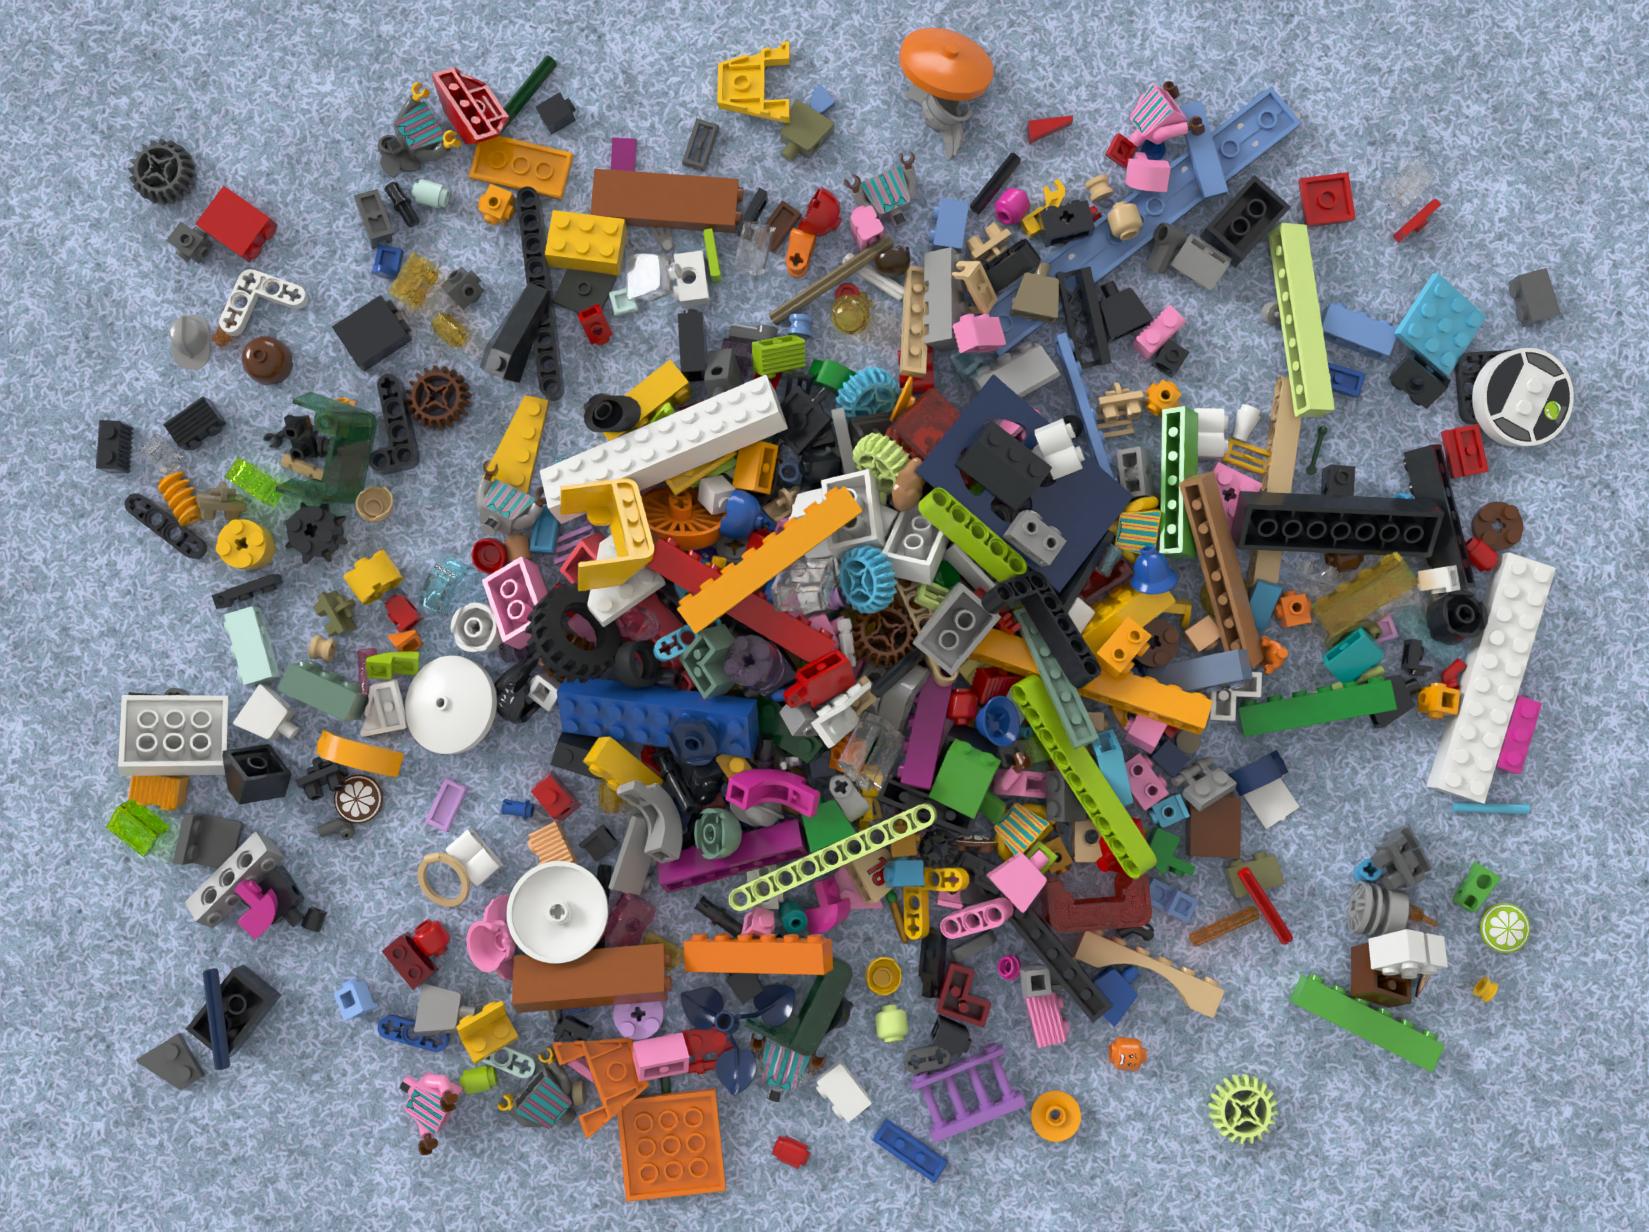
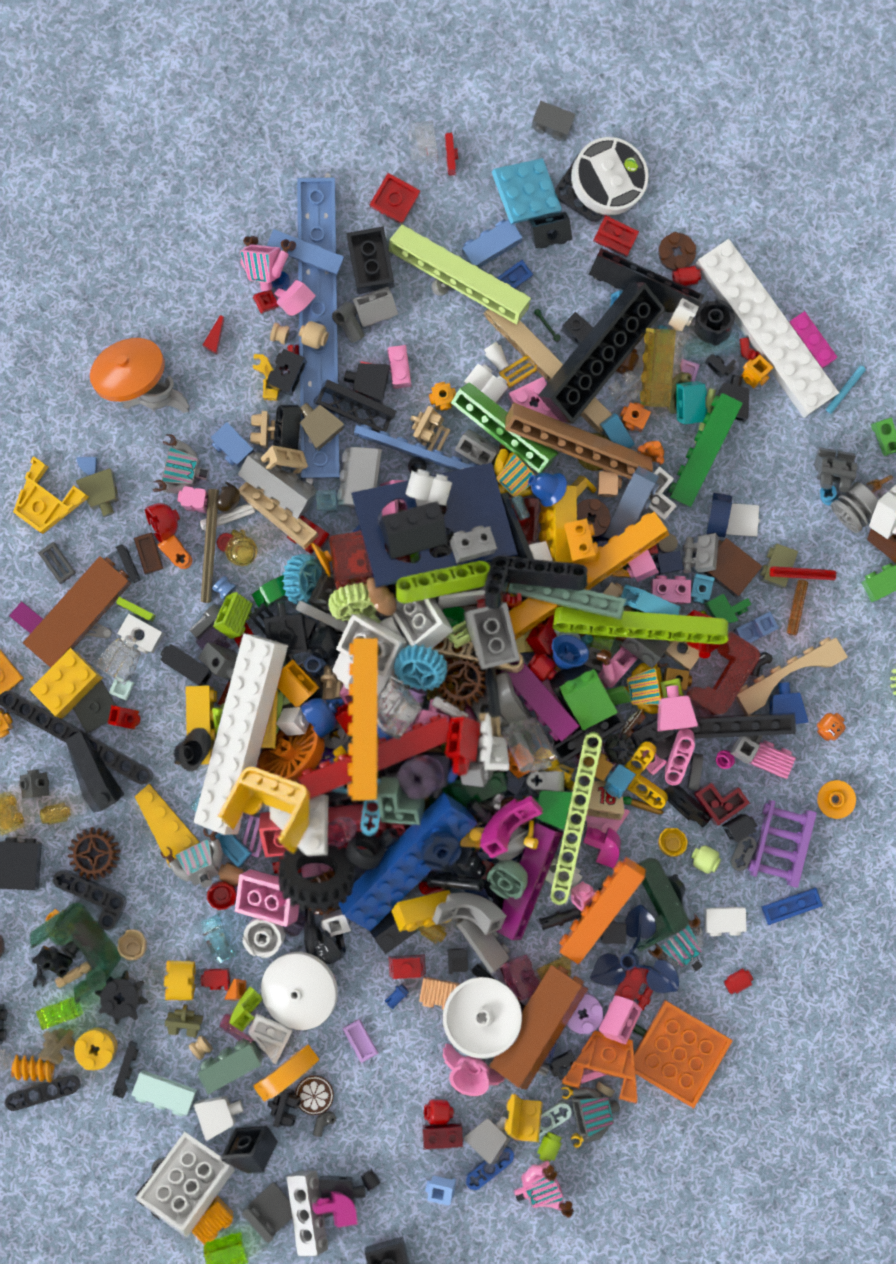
camera: 65 degrees left, 0 degrees up
(456, 865) = (406, 1061): tan piece -> none
(475, 857) = (407, 1047): white brick -> none
(754, 248) = (152, 579): clear brick -> none
(773, 825) = (529, 841): none -> yellow hand
(792, 916) = (594, 871): teal brick -> none
(979, 334) = (317, 480): bright pink brick -> none
(995, 183) = (226, 395): black axle -> none
(1012, 206) = (249, 396): dark pink head -> none
(1170, 358) = (421, 372): black brick -> none

